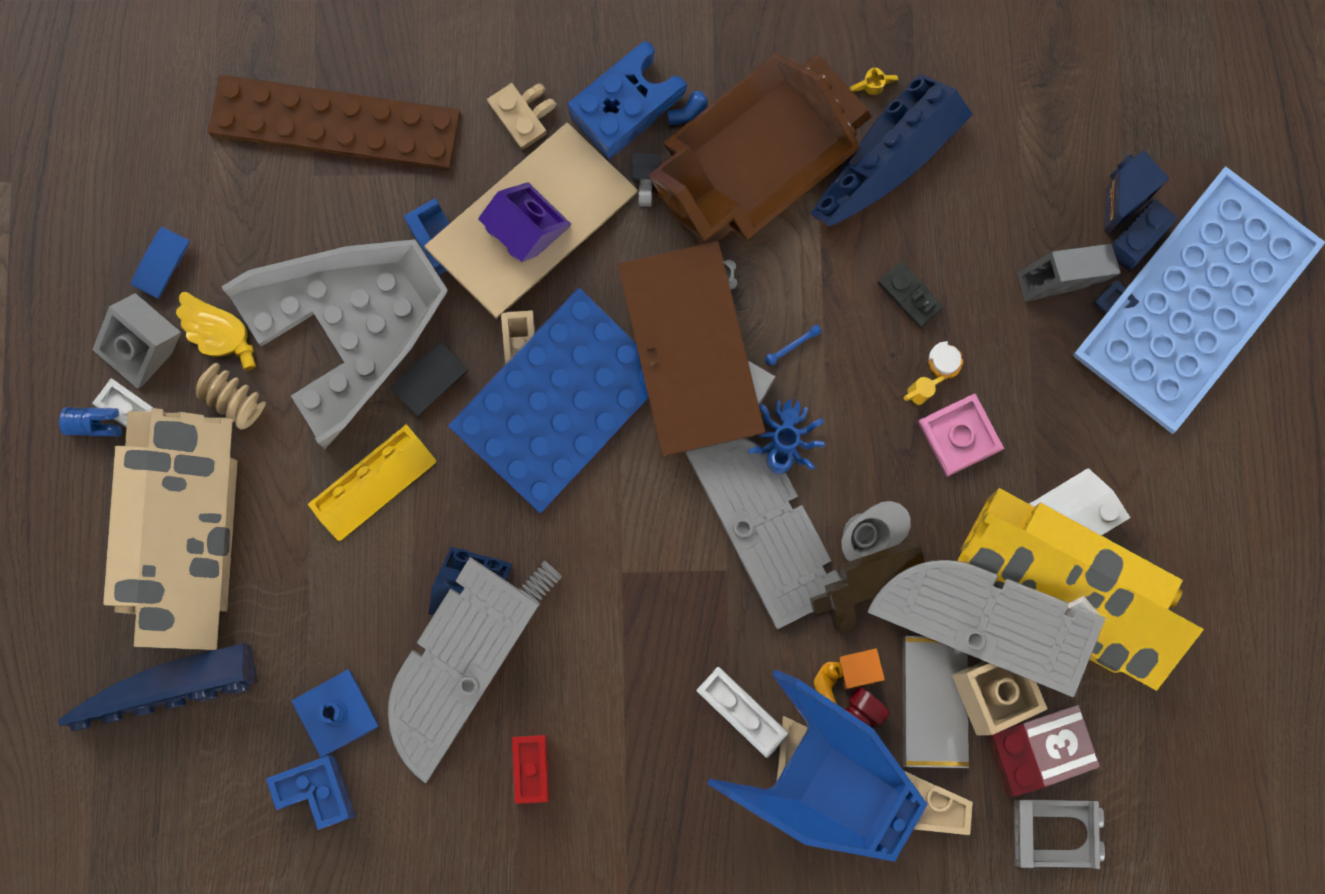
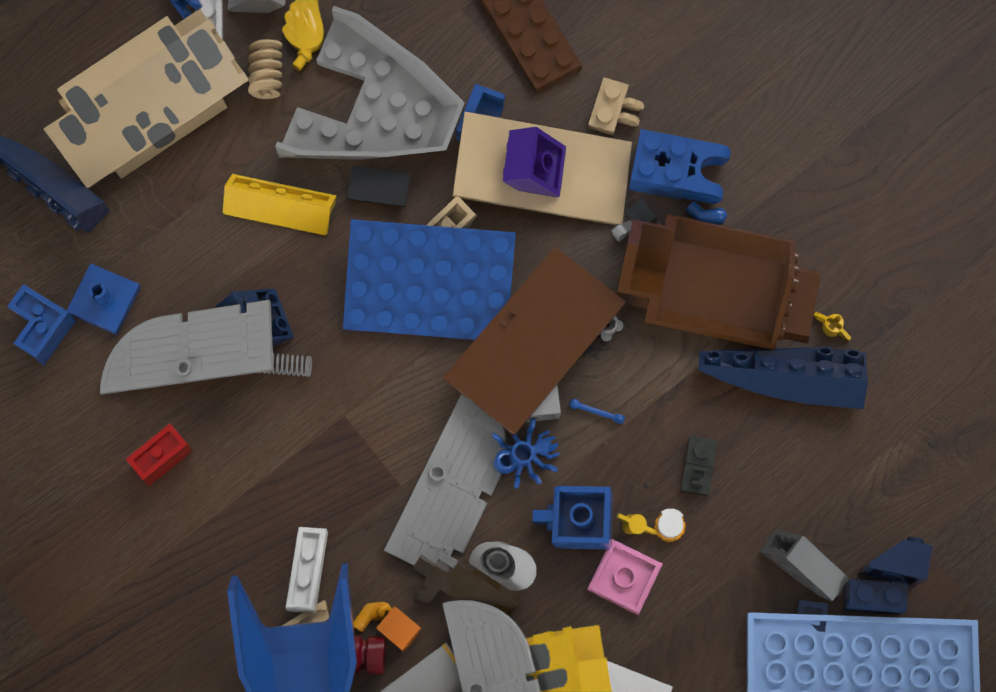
camera: 50 degrees right, 5 degrees down
(882, 433) = (579, 517): none -> blue hinge

